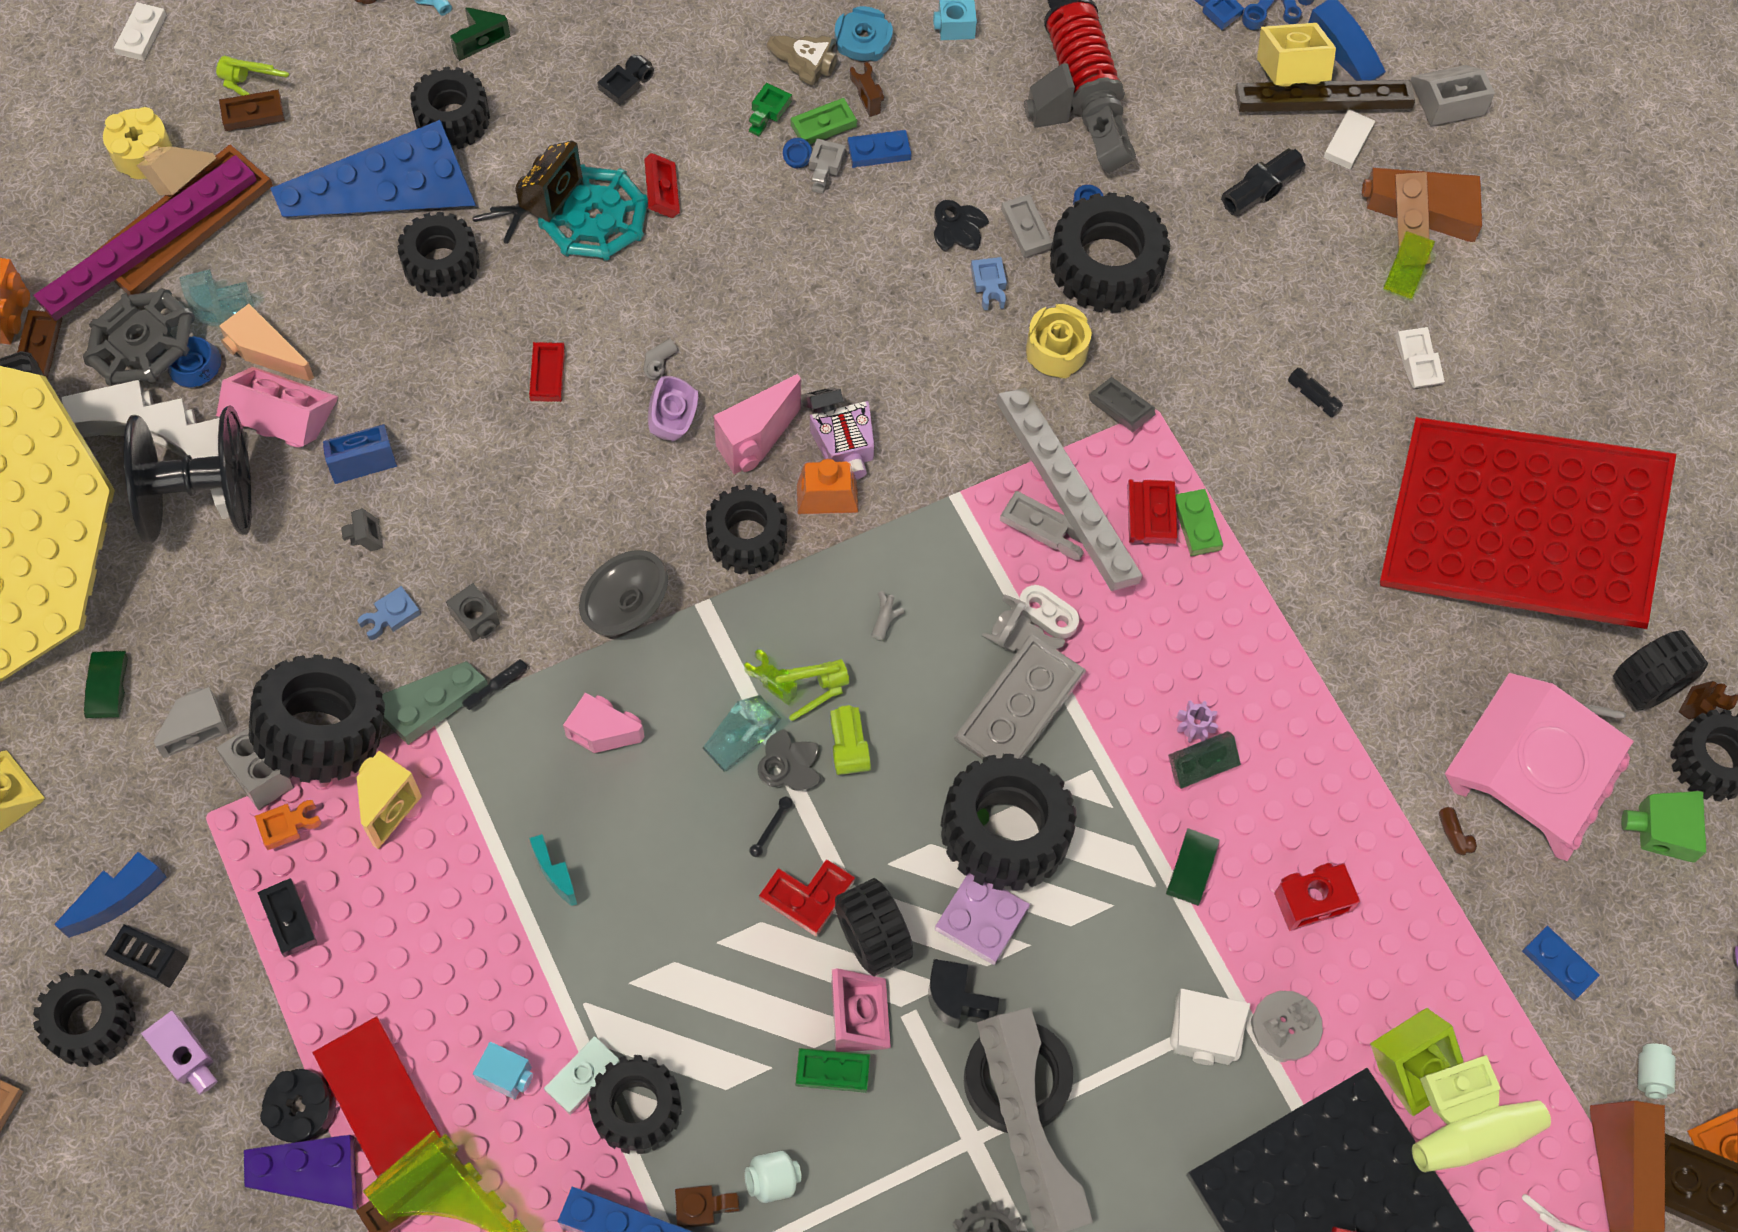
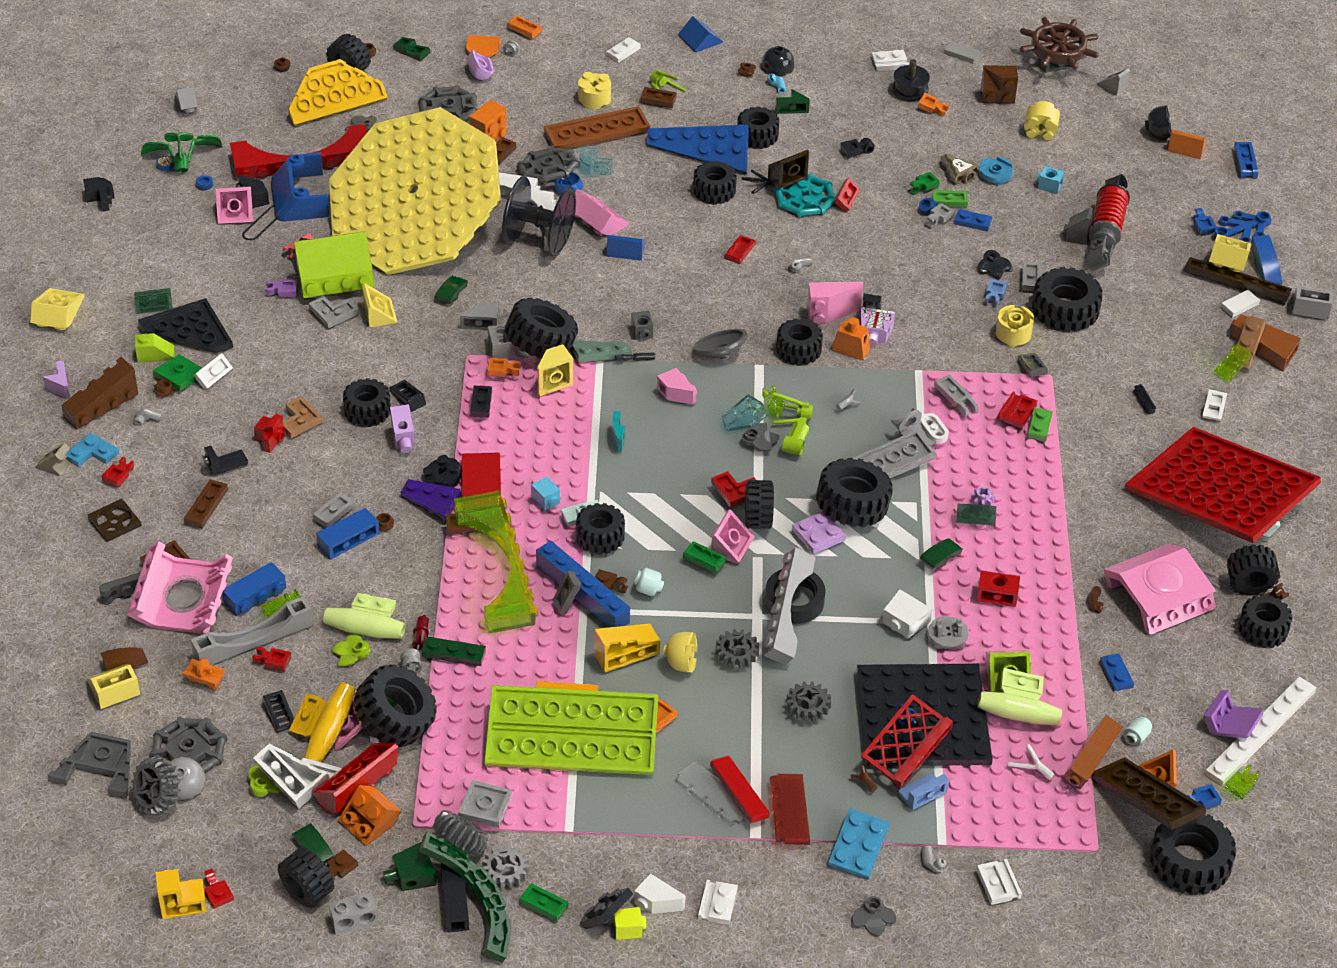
camera: 30 degrees right, 20 degrees down
(110, 896) = (405, 365): blue slope -> none
(144, 238) = (575, 127): magenta plate -> none
(172, 167) = (605, 102): tan slope -> none
(261, 344) = (605, 188): light nougat slope -> none
(363, 531) = (610, 275): dark grey tile -> none
(392, 611) = (602, 313): medium blue plate -> none
(671, 408) = (792, 281): lavender piece -> none
(785, 804) = (748, 453): black hinge -> none
(869, 93) = (983, 193): reddish brown plate -> none
(949, 999) = (780, 546): black brick -> none
(1069, 489) = (978, 383): light grey plate -> none
(1263, 181) = (1176, 302): black piece -> none
(1670, 824) = (1217, 639): bright green torso -> none

